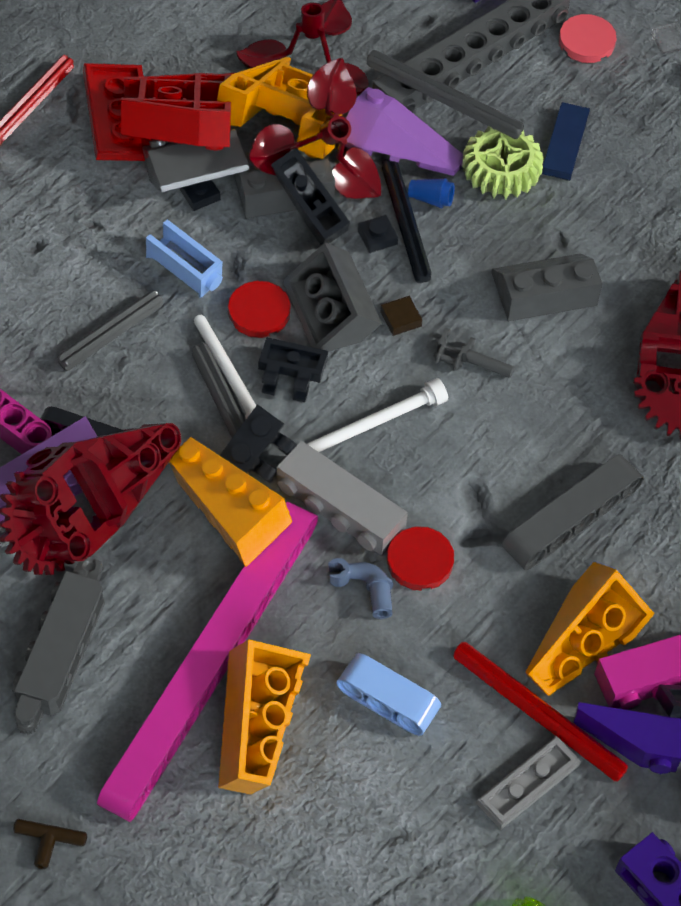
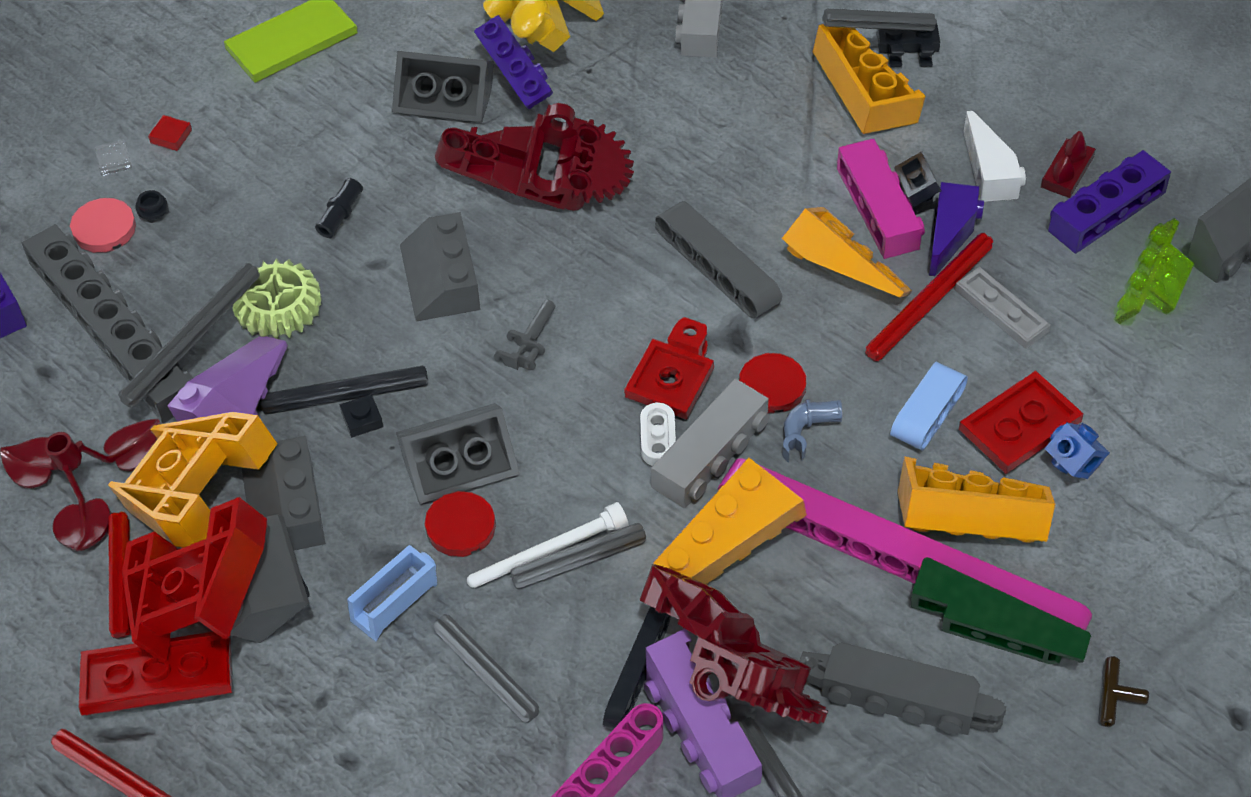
camera: 85 degrees left, 5 degrees down
(124, 722) = (994, 617): none -> dark green wedge
(253, 439) = (646, 516): black plate -> none
(294, 361) = (534, 490): black plate -> none
(310, 197) = (335, 454): black slope -> none
(326, 824) = (1076, 450): none -> blue brick
(335, 92) = (214, 412): dark red plant -> none
(353, 455) = (659, 436): none -> white plate
(370, 781) = (1019, 421): none -> red plate
(401, 315) = (473, 393): dark brown tile -> none
(432, 191) = (311, 361): blue cone -> none
(432, 393) = (578, 367): white piece -> none
(442, 473) = (680, 357): none -> red plate
(565, 141) = (244, 247): dark blue tile -> none
(611, 67) = (151, 205): none -> black plate
(618, 202) = (339, 208): none -> black pin

